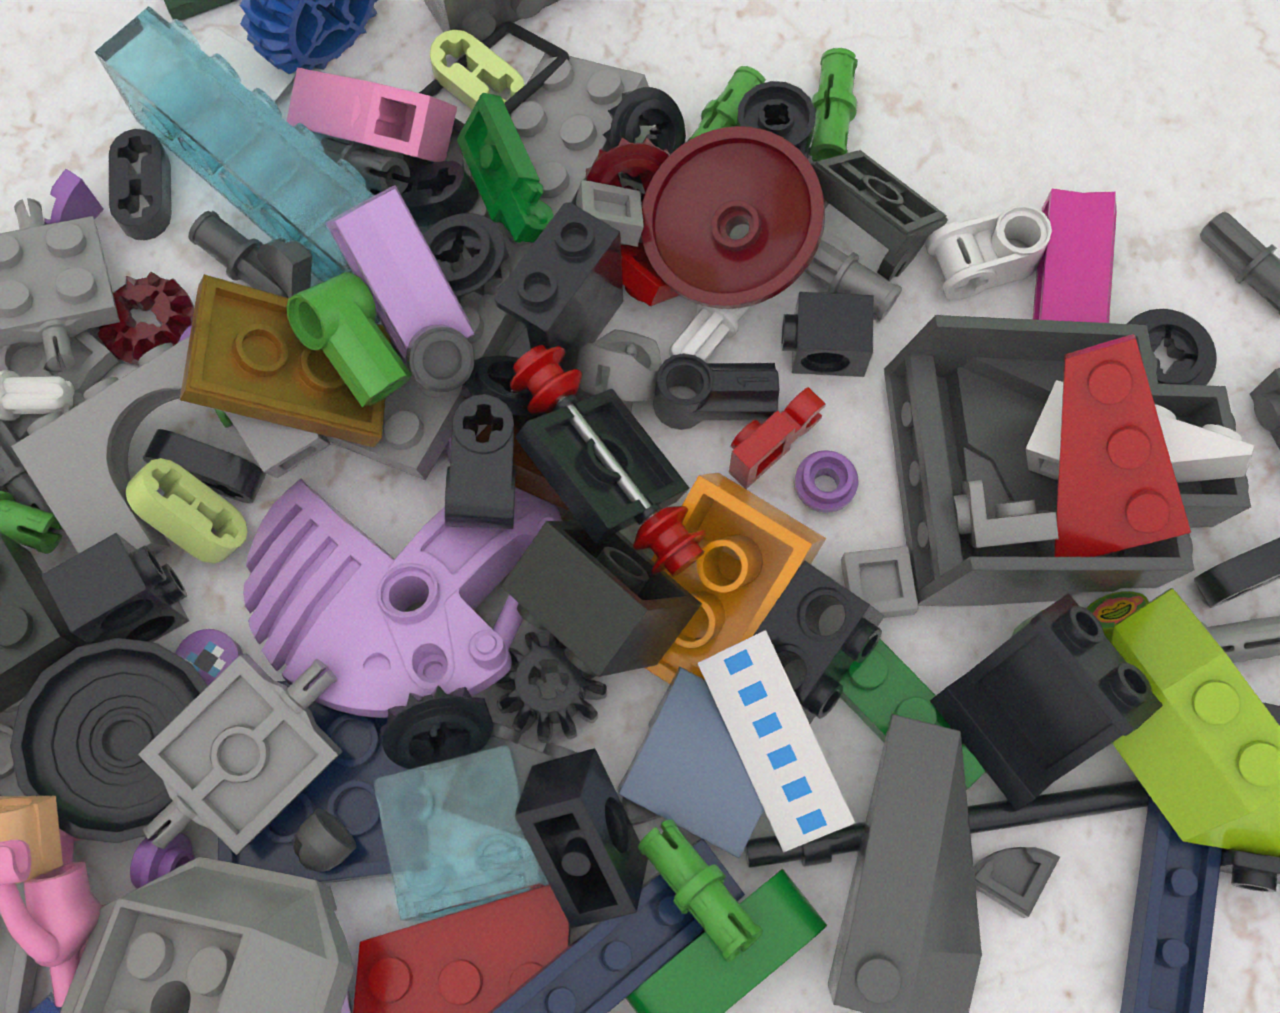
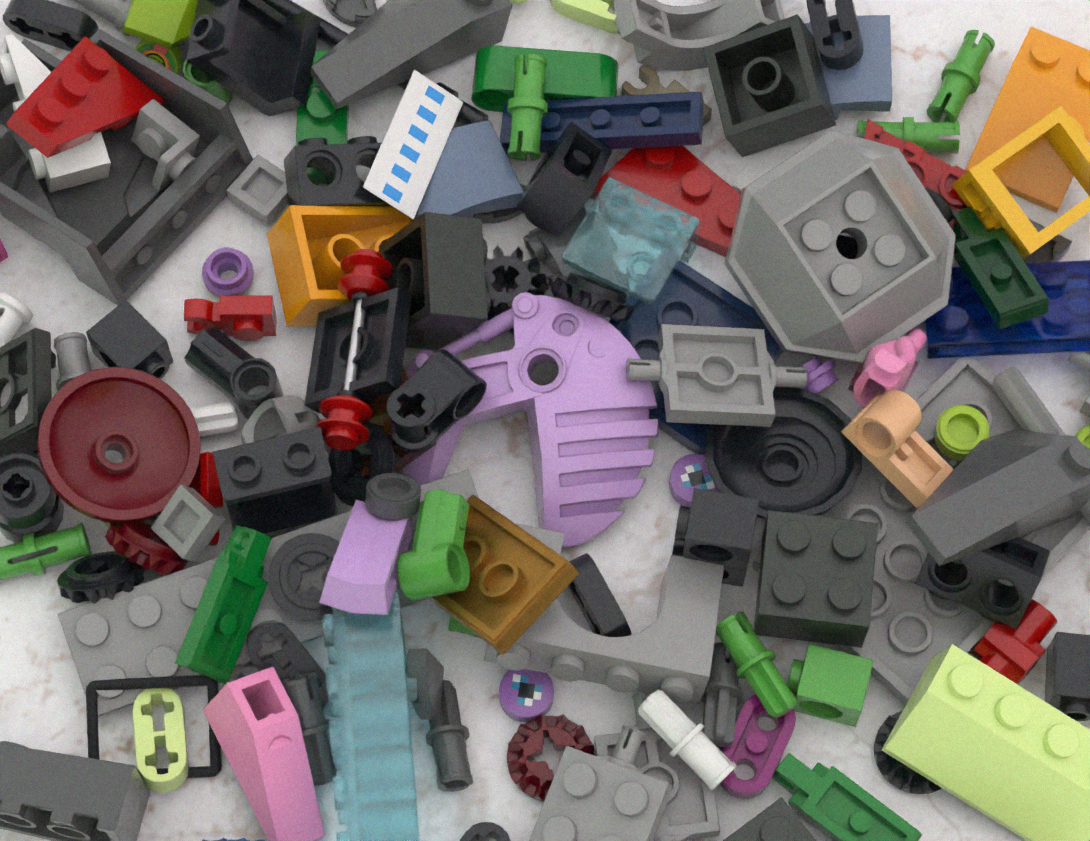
camera: 140 degrees left, 5 degrees down
(186, 511) = (632, 568): yellowish green beam -> none
(322, 842) = (707, 300): dark grey hinge -> none

